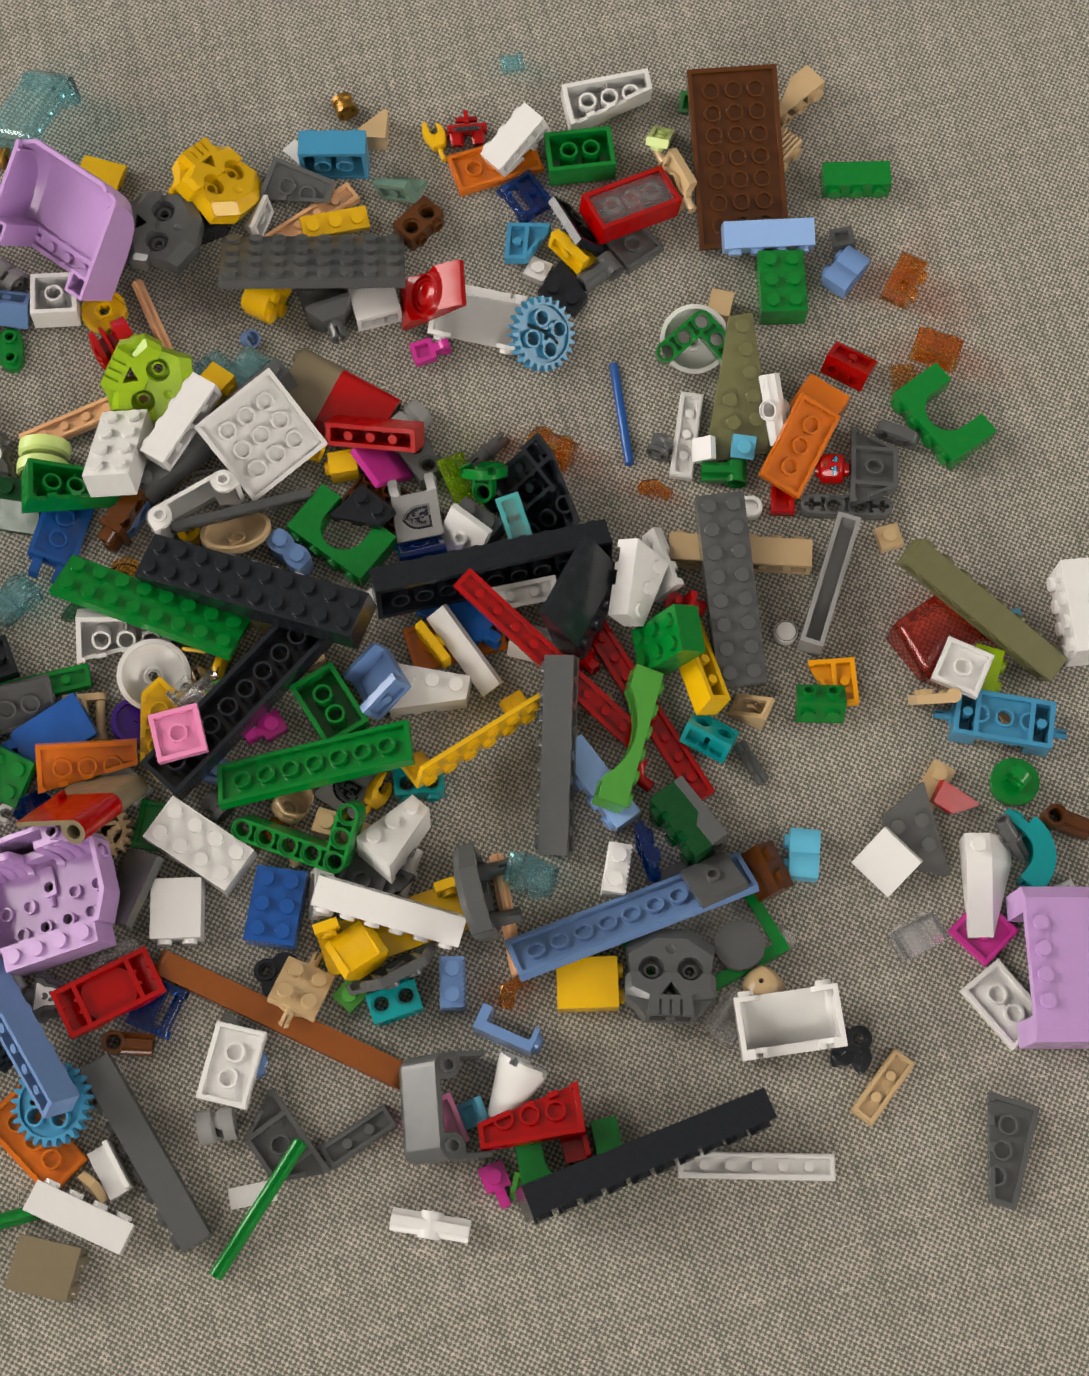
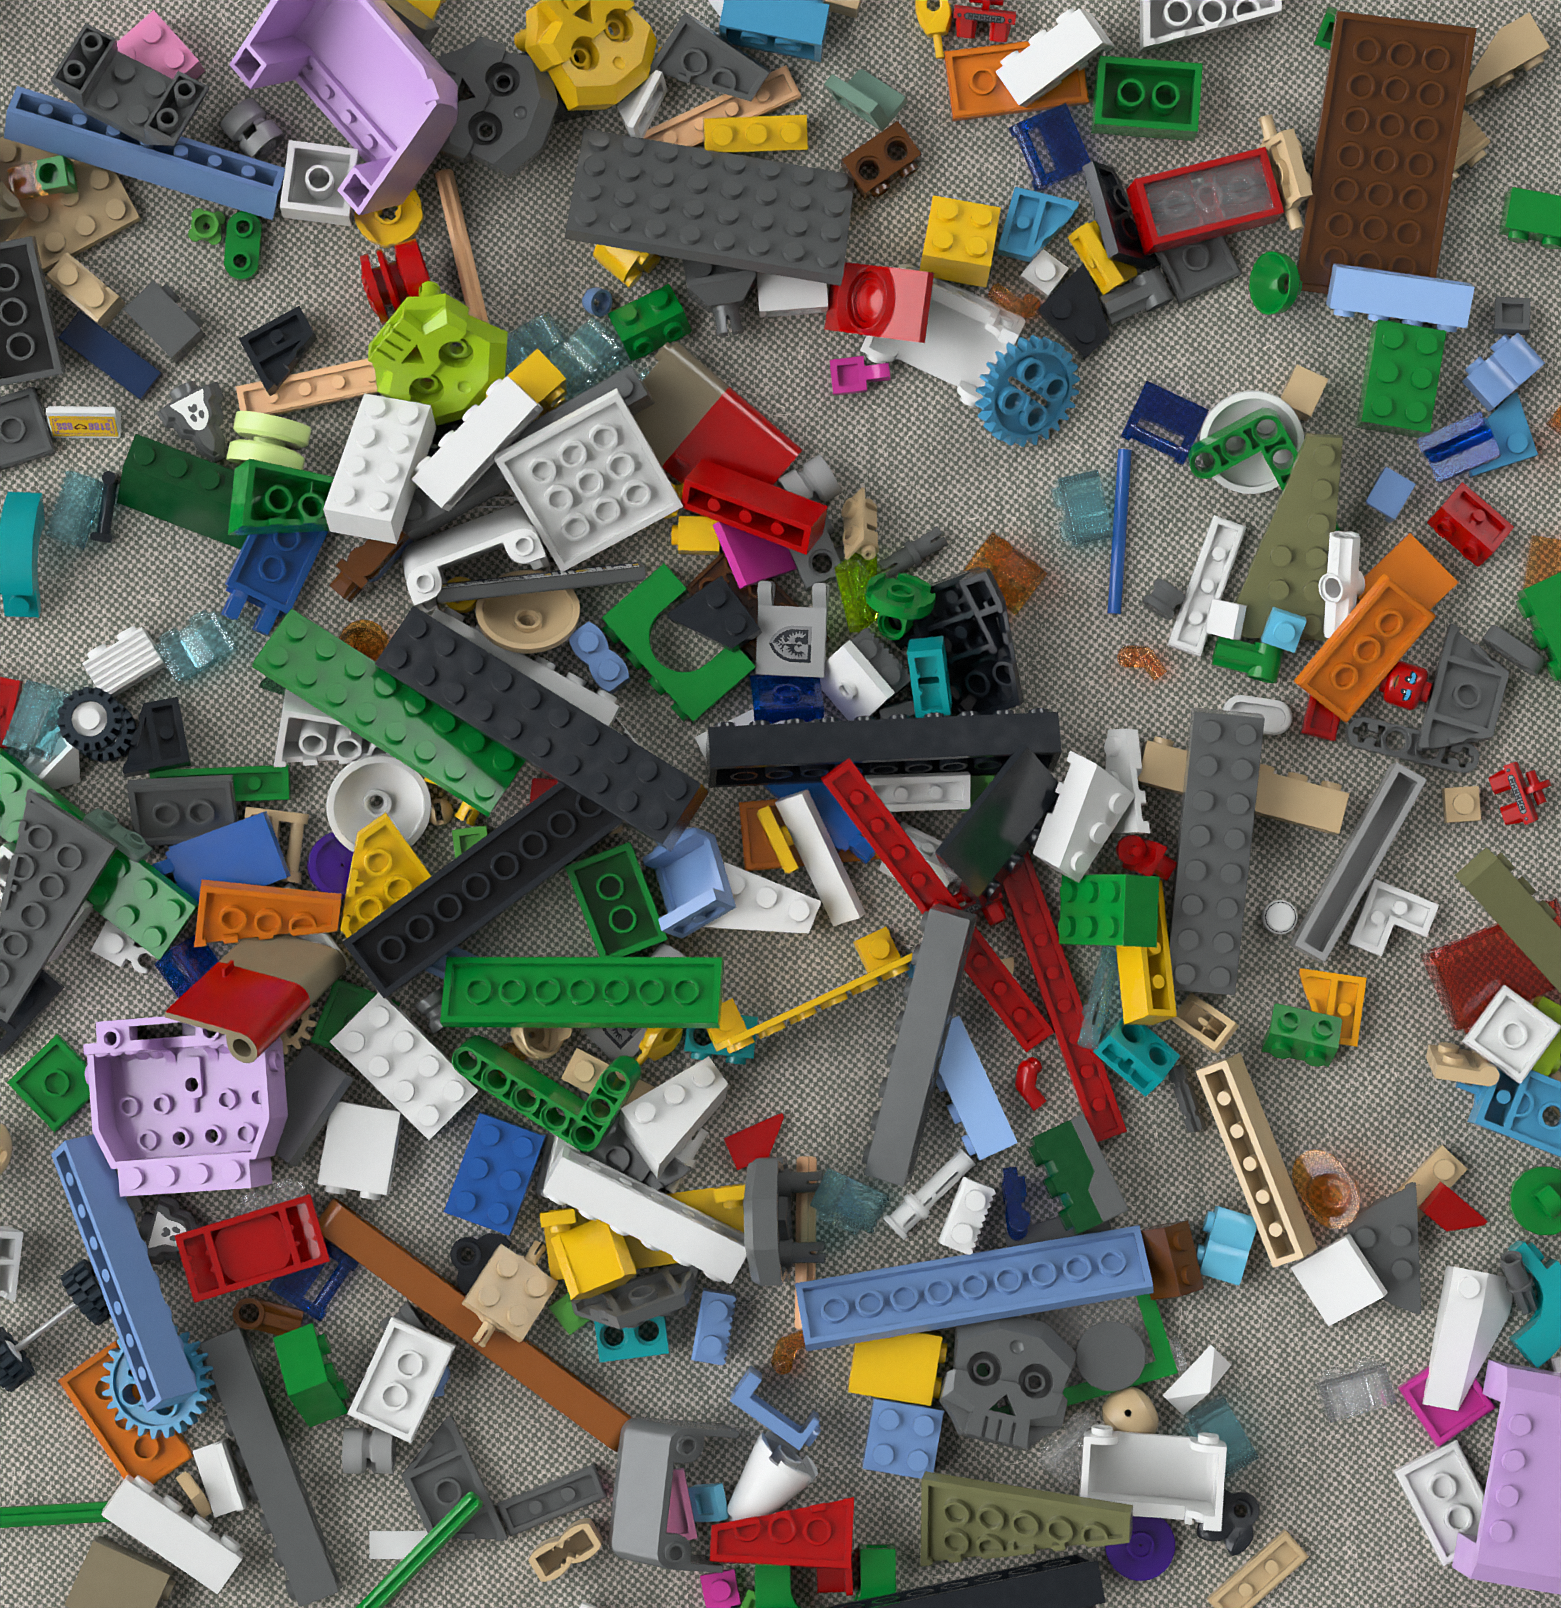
camera: 10 degrees right, 15 degrees up
(43, 403) = (278, 347): none -> black wing
(166, 1077) = (309, 1376): none -> green brick
(178, 733) = (401, 916): bright pink plate -> none
(187, 691) = (428, 848): clear bracket -> none
(269, 727) = (528, 911): dark pink plate -> none
(286, 343) = (650, 322): none -> green bracket
(368, 1173) = (556, 1554): none -> tan brick
(445, 854) = (753, 1141): none -> red tile
(449, 438) = (860, 526): none -> tan hinge
(480, 255) = (960, 240): none -> yellow brick
(515, 288) = (1013, 304): none -> clear orange arm
(580, 871) = (918, 1205): none -> white pin
(594, 403) = (1082, 509): none -> clear light blue brick
(604, 1035) = (902, 1437): none -> medium blue brick
(636, 337) = (1169, 413): none -> clear blue plate
(641, 693) = (1055, 977): bright green arch -> none
(659, 138) = (1275, 97): yellowish green plate -> none
(674, 727) = (1090, 1034): none -> clear light blue pin
(682, 245) = (1267, 283): none -> green piece
(685, 1075) = (1004, 1520): none -> olive wing
(714, 879) = (1095, 1265): dark grey plate -> none
(783, 1089) = (1151, 1557): none -> dark purple piece
(792, 354) = (1389, 493): none -> medium blue panel
(804, 953) = (1197, 1380): none -> white slope
(809, 790) = (1256, 1160): none -> tan brick
(826, 970) = (1218, 1418): none -> clear light blue brick
(829, 317) = (1459, 447): none -> clear blue panel
(854, 313) = (1511, 434): none -> dark azure wing
(859, 610) = (1388, 907): none -> white plate
(862, 799) = (1326, 1188): none -> clear orange piece
(916, 514) = (1512, 778): none -> red hips

